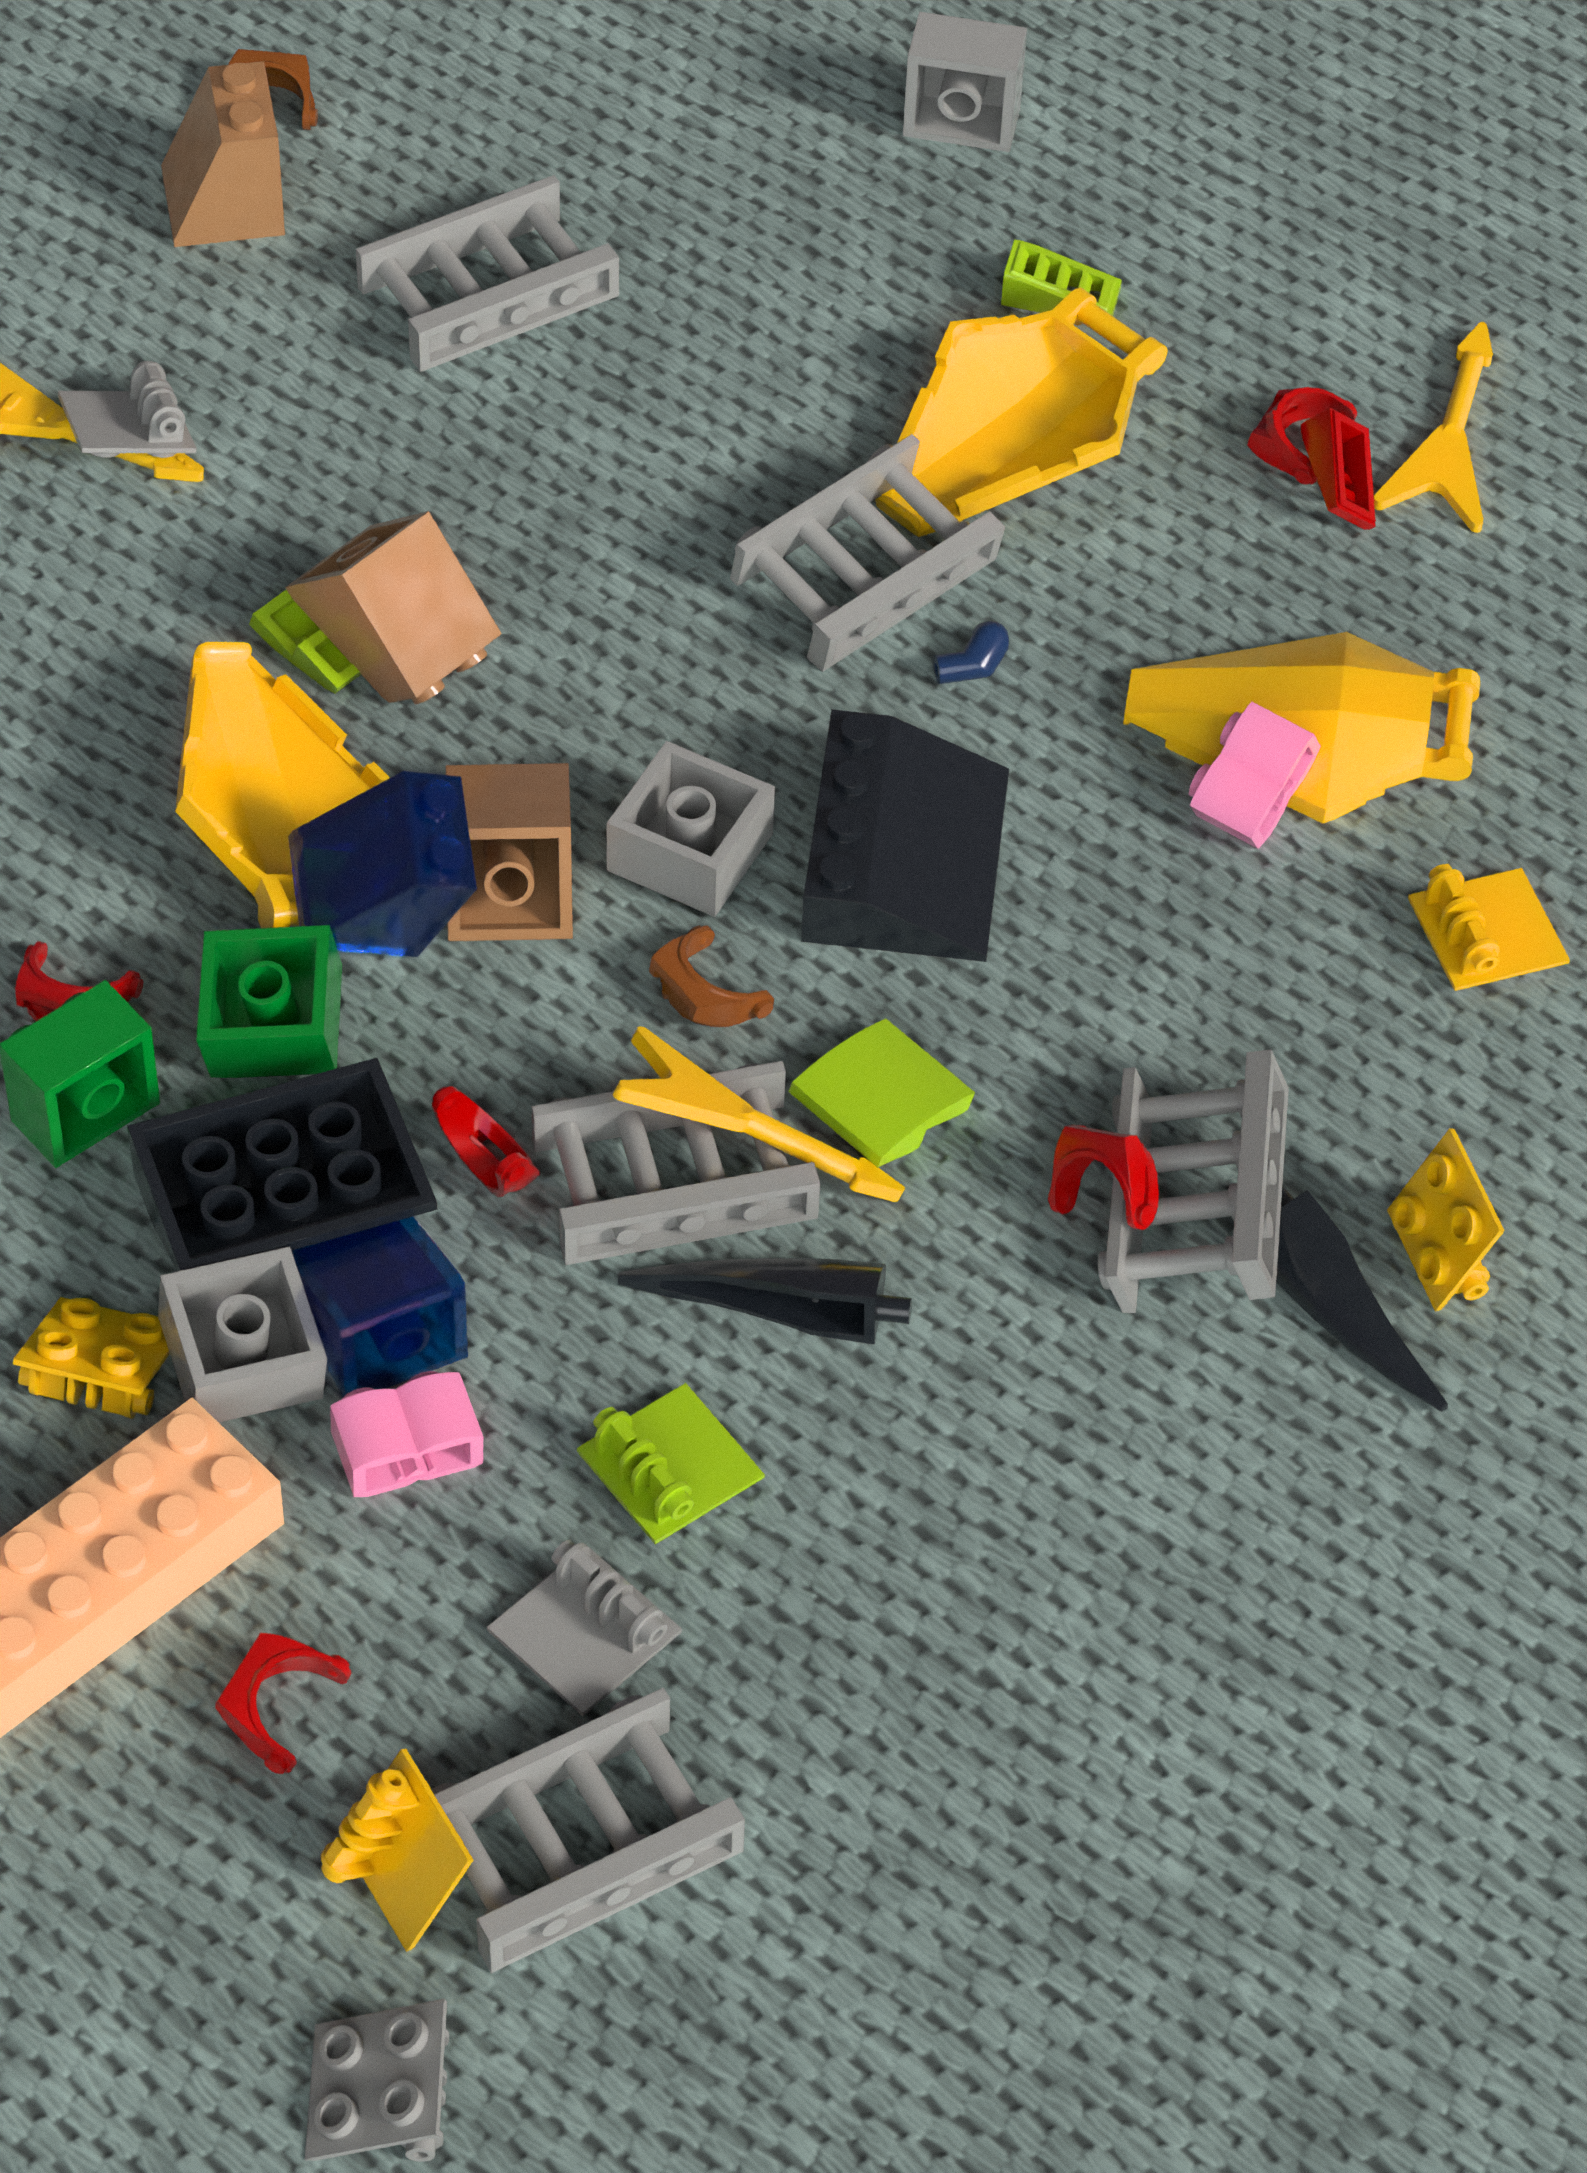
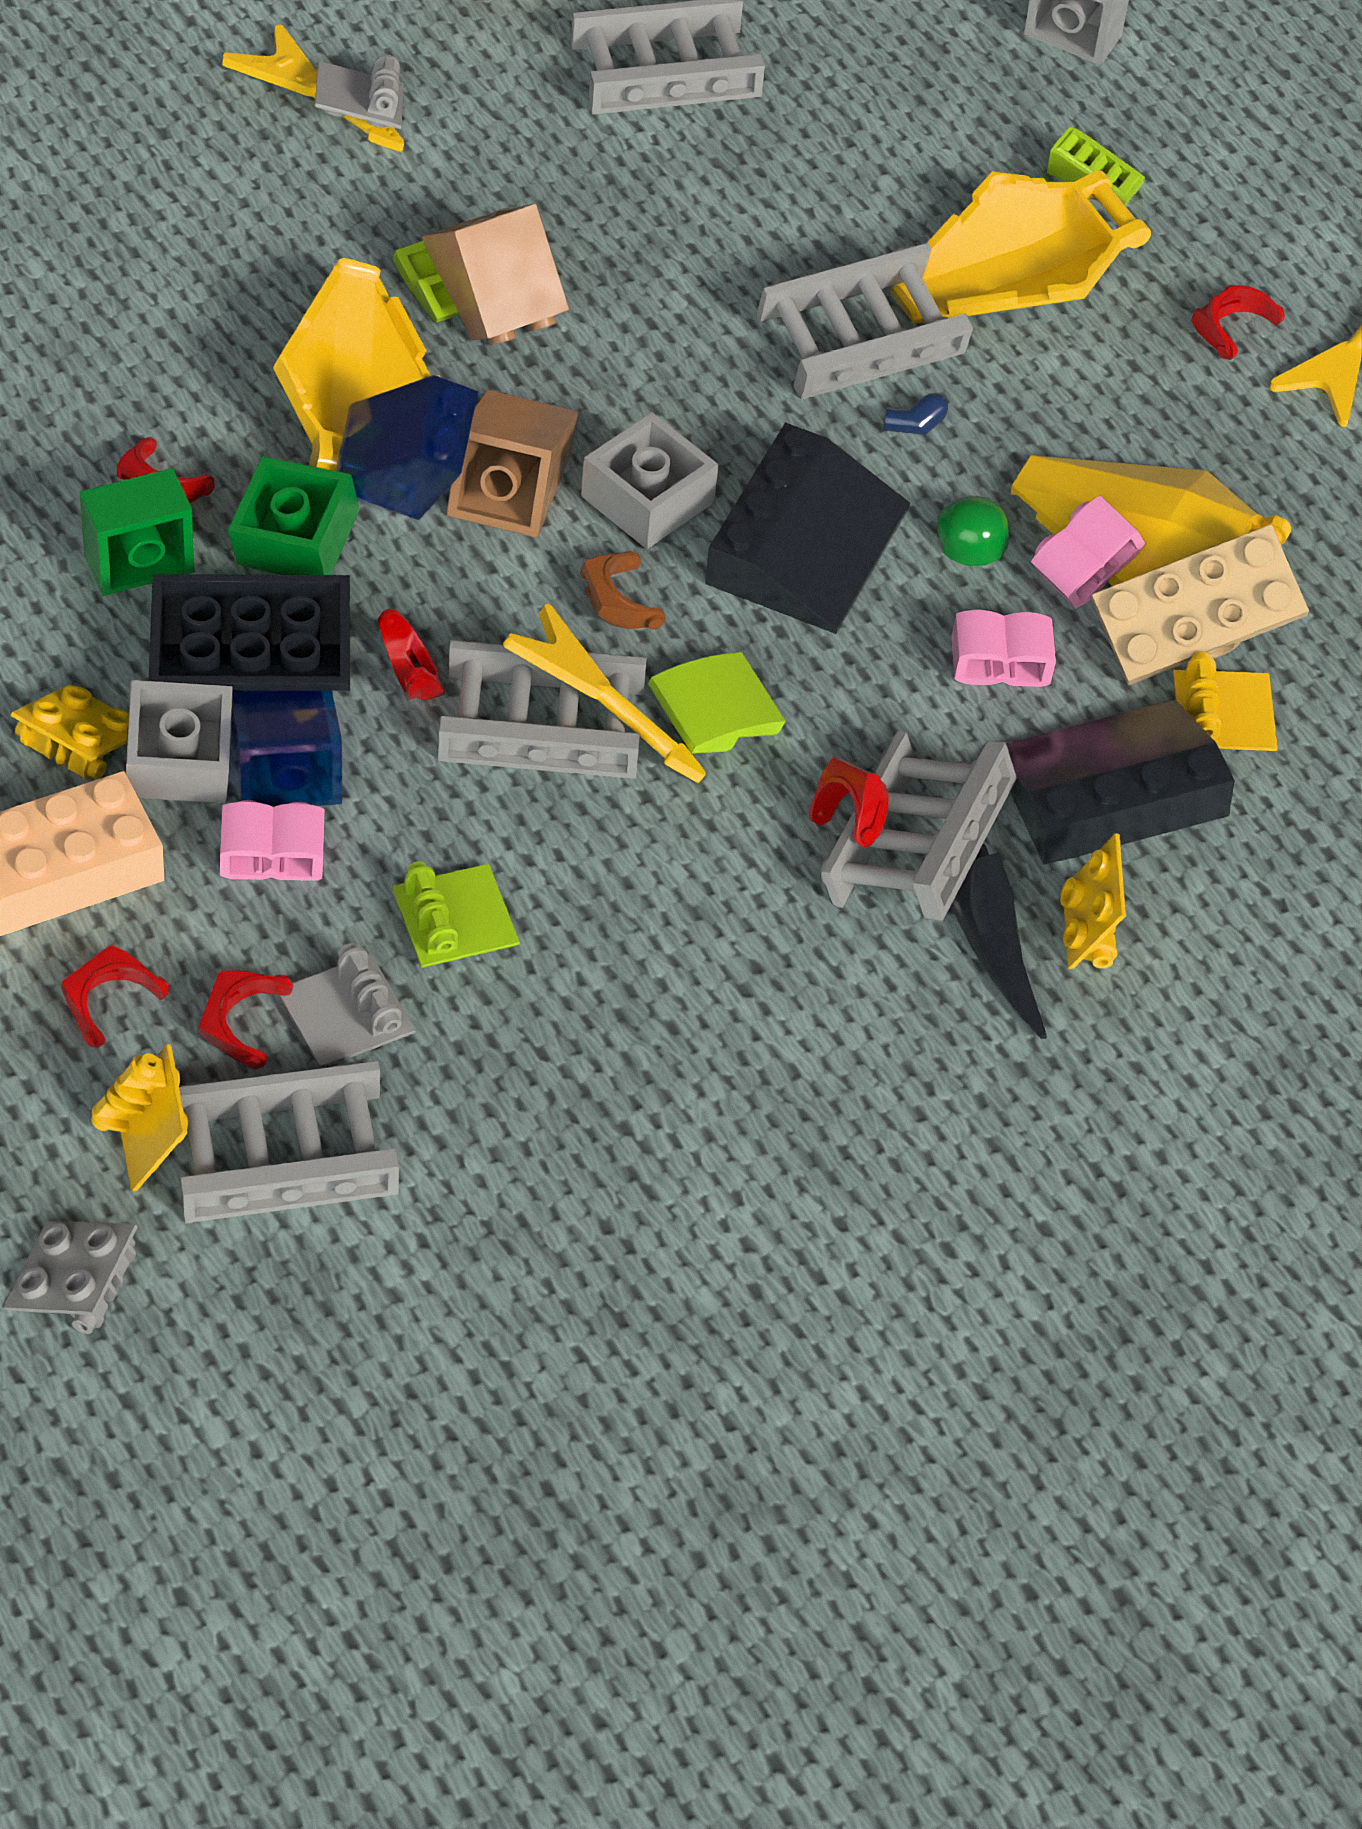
camera: 15 degrees right, 0 degrees up
(430, 1696) = (227, 991): none -> red helmet
(804, 1293) = (598, 825): black piece -> none
(1100, 784) = (973, 530): none -> green hair
(1199, 925) = (1003, 648): none -> bright pink brick
(1342, 465) = (1262, 335): red slope -> none
(1405, 1053) = (1120, 776): none -> black slope
(1417, 806) = (1200, 605): none -> tan plate

